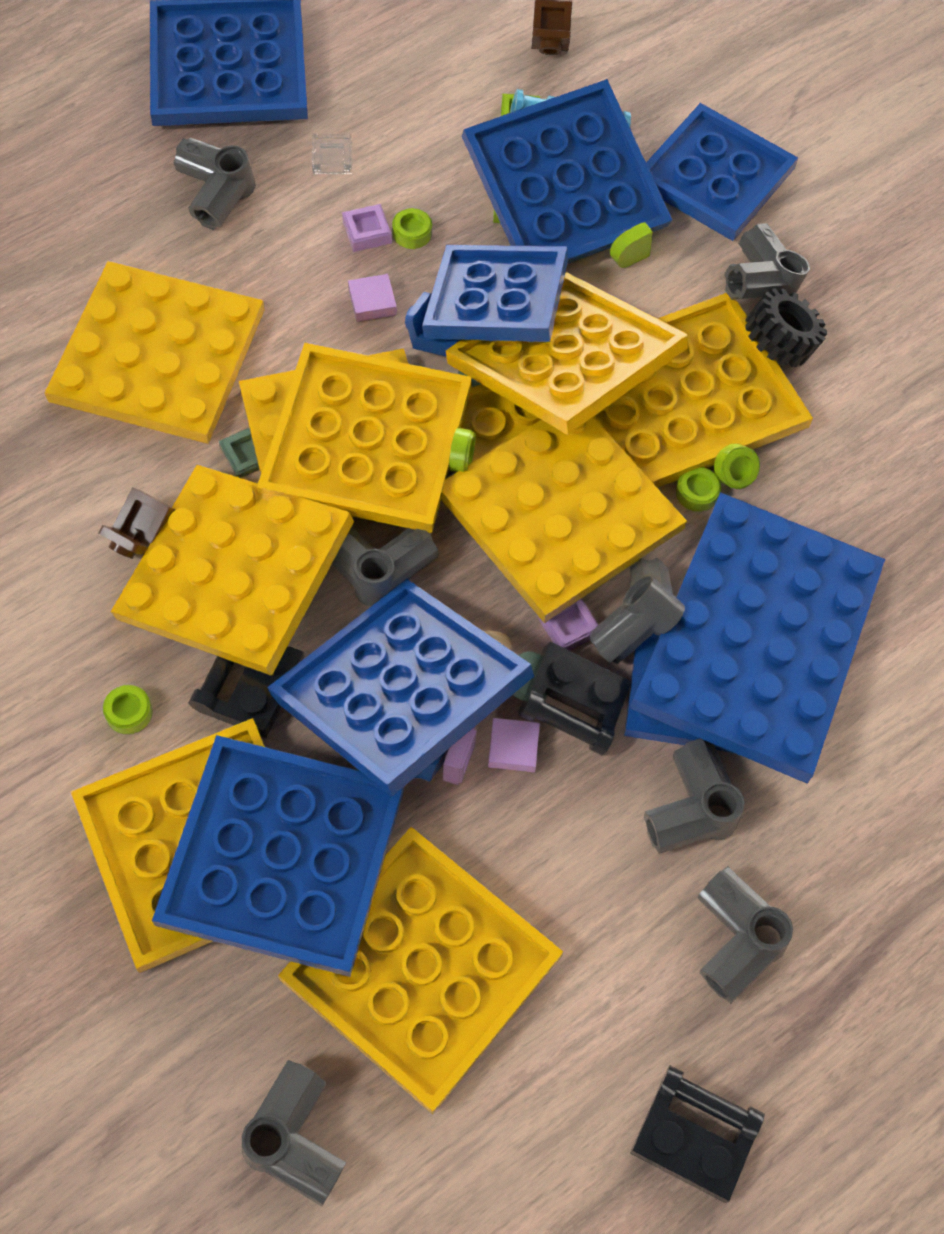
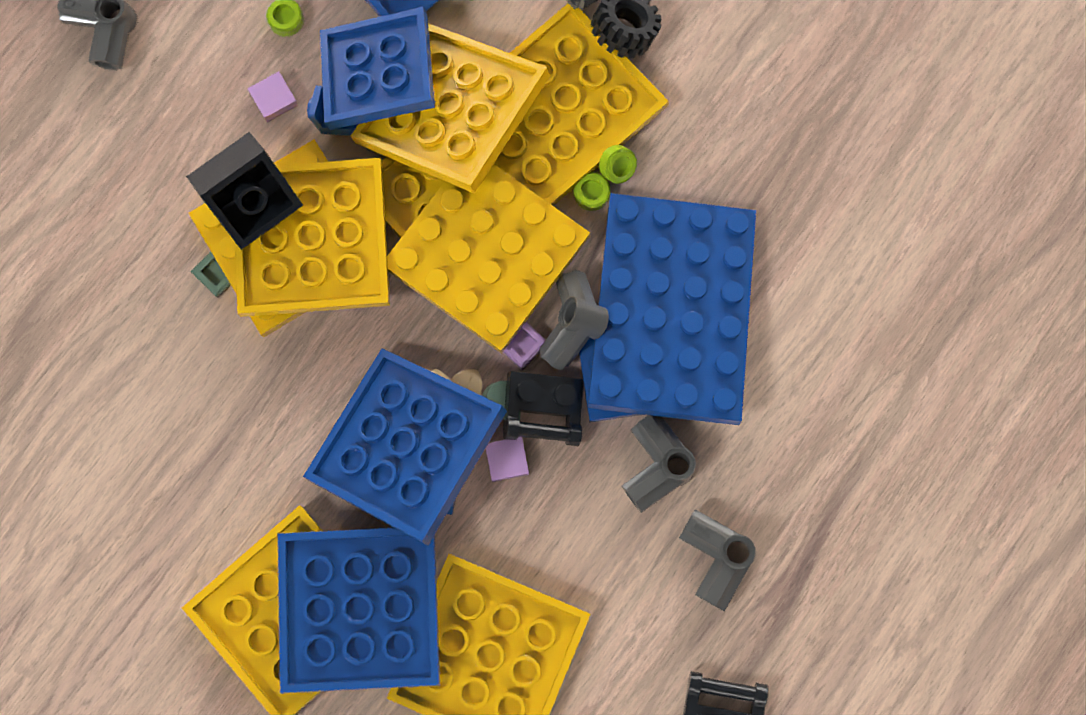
camera: 10 degrees left, 15 degrees up
(127, 709) = (199, 524): lime tile -> none
(137, 524) = (152, 370): bracket -> none
(156, 352) = (109, 204): yellow plate -> none
(233, 569) = (241, 384): yellow plate -> none
(250, 696) = (295, 458): black plate -> none
(313, 353) = (245, 190): none -> black piece
(367, 227) = (246, 28): lavender tile -> none
(392, 562) = (337, 344): dark grey piece -> none
(458, 758) = (468, 491): lavender tile -> none
(462, 450) = (392, 226): lime tile -> none

